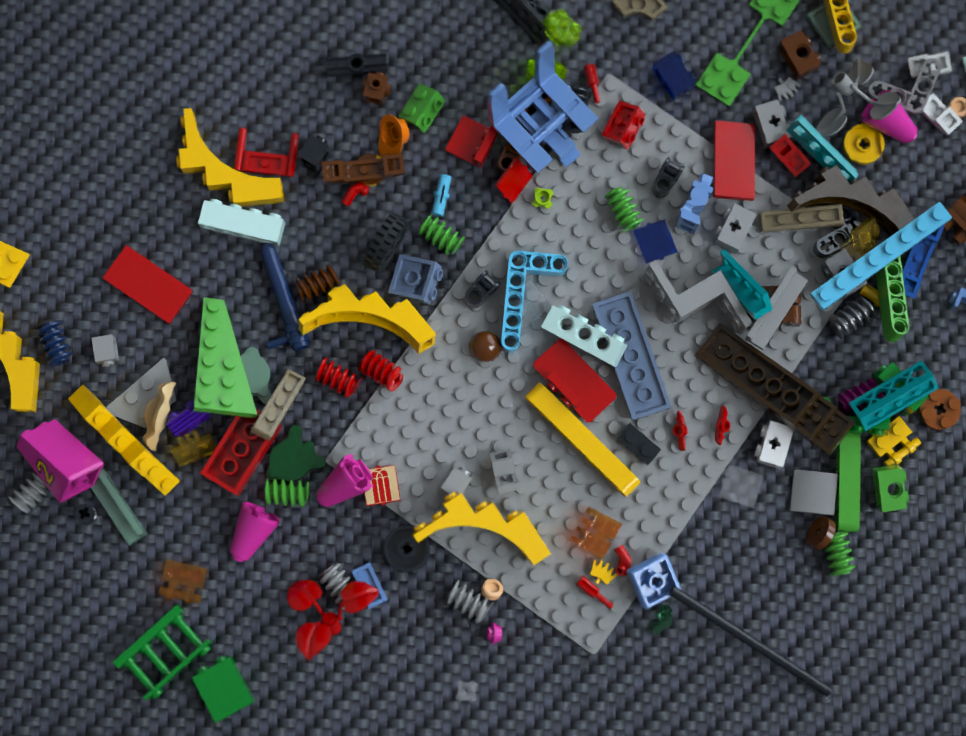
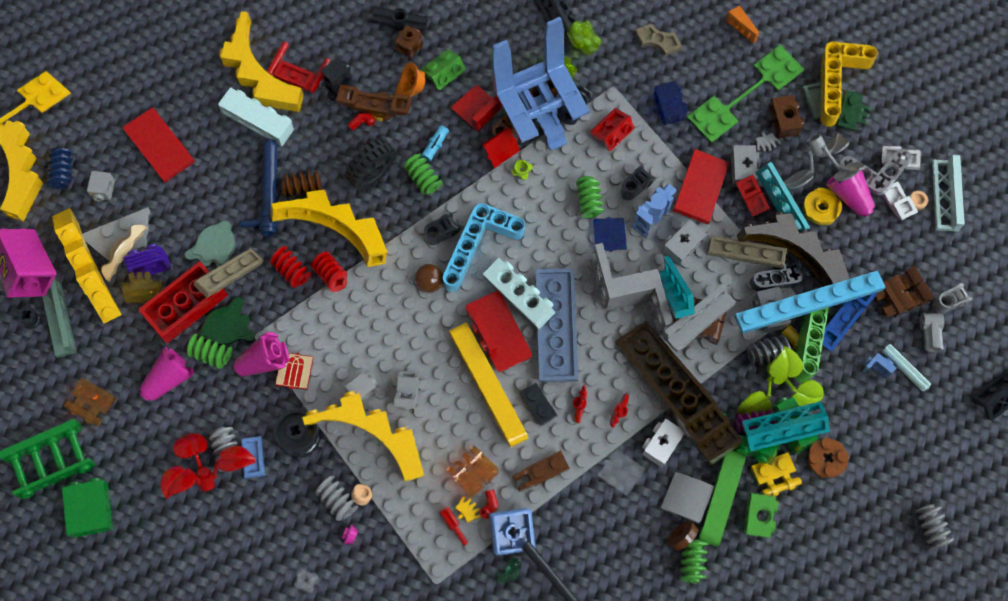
camera: 20 degrees right, 10 degrees down
(220, 372) = (188, 229): bright green wing -> none
(415, 279) = (388, 205): sand blue plate -> none
(592, 80) = (597, 87): red axle -> none
(664, 510) = (542, 471): none -> reddish brown hinge
(865, 236) = (801, 281): clear yellow hinge -> none
(867, 27) = (852, 111): none -> dark green hinge
(870, 338) = (783, 366): none -> lime plant

